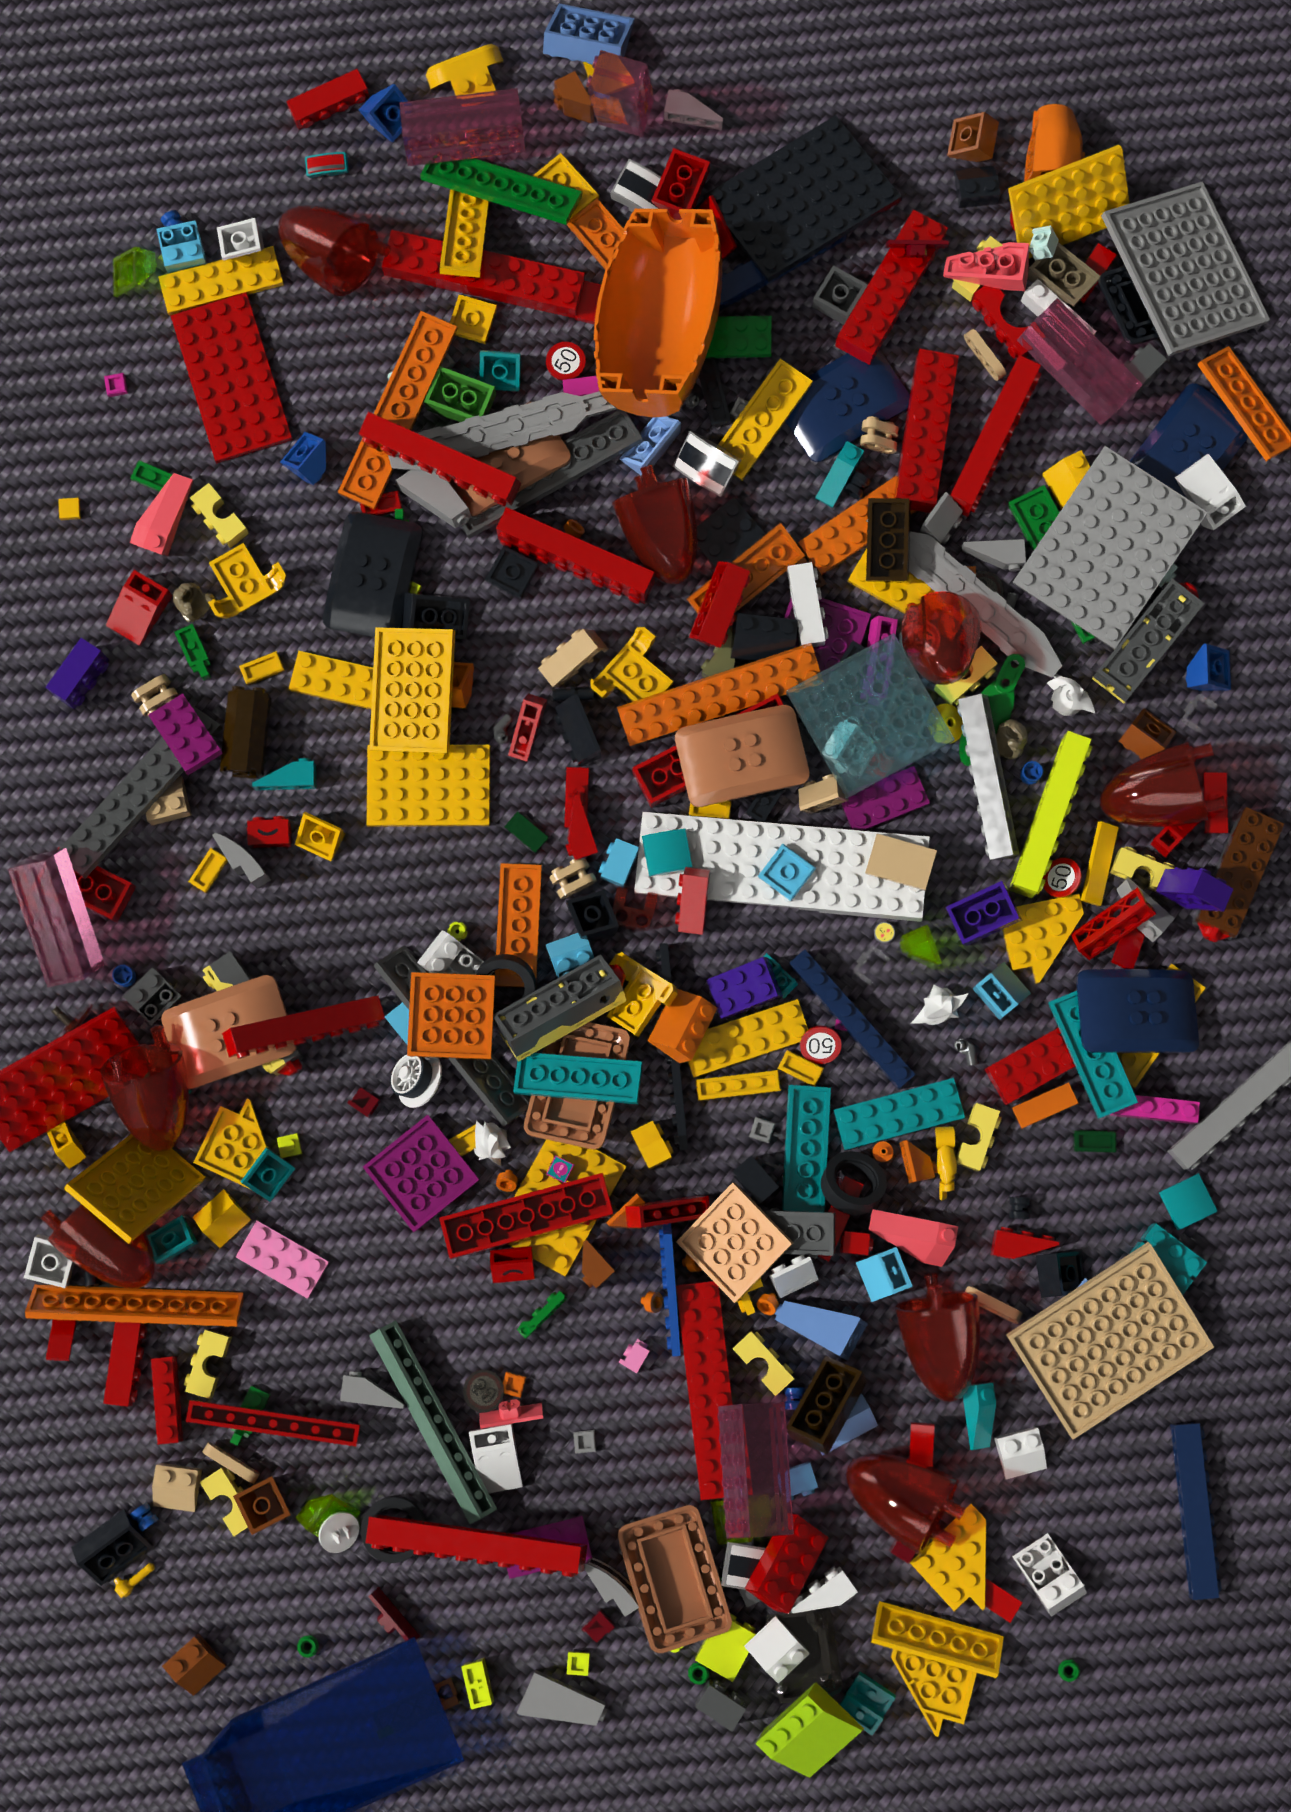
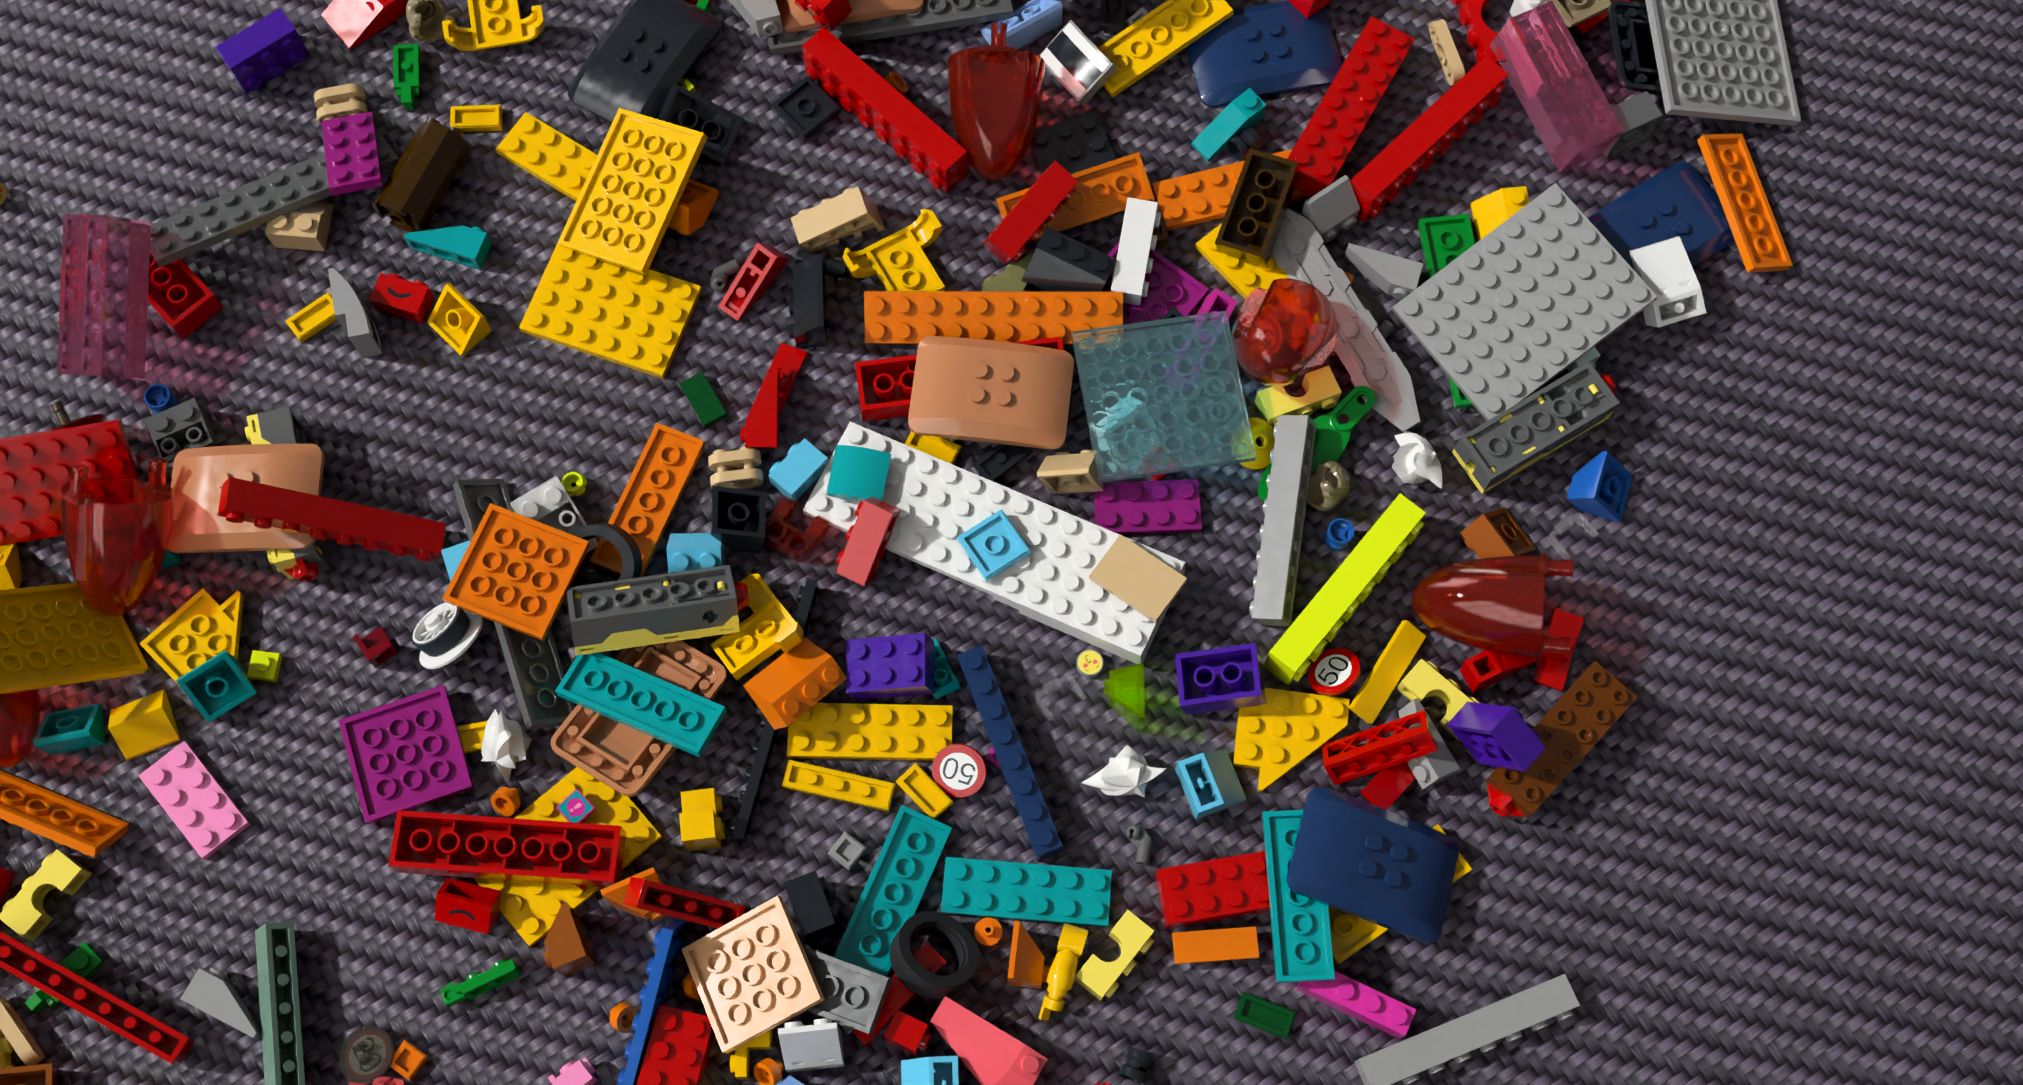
camera: 15 degrees right, 10 degrees down
(879, 435) = (1290, 97): tan brick -> none

